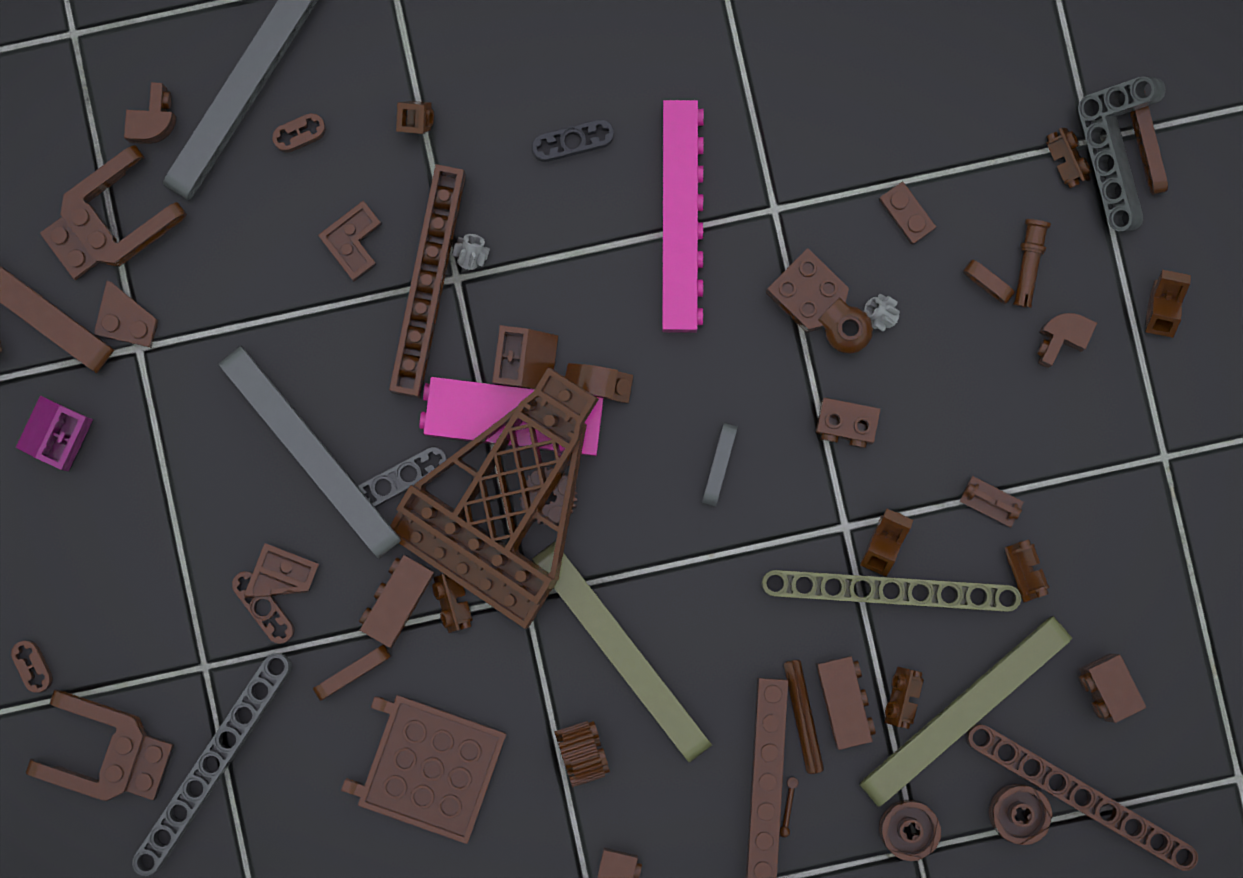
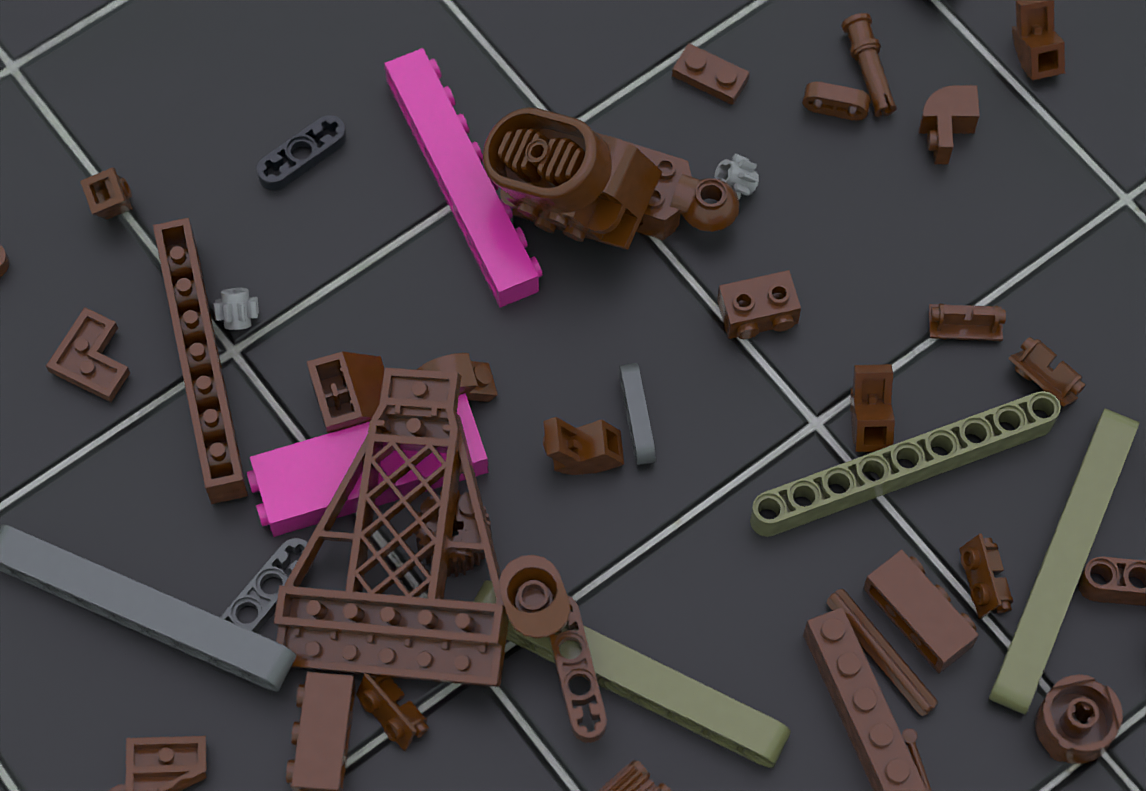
camera: 30 degrees left, 20 degrees down
(576, 584) = (534, 596): none -> reddish brown piece
(582, 637) = (578, 667): none -> reddish brown beam
(668, 474) = (584, 448): none -> reddish brown brick
(749, 272) = (569, 176): none -> reddish brown brick

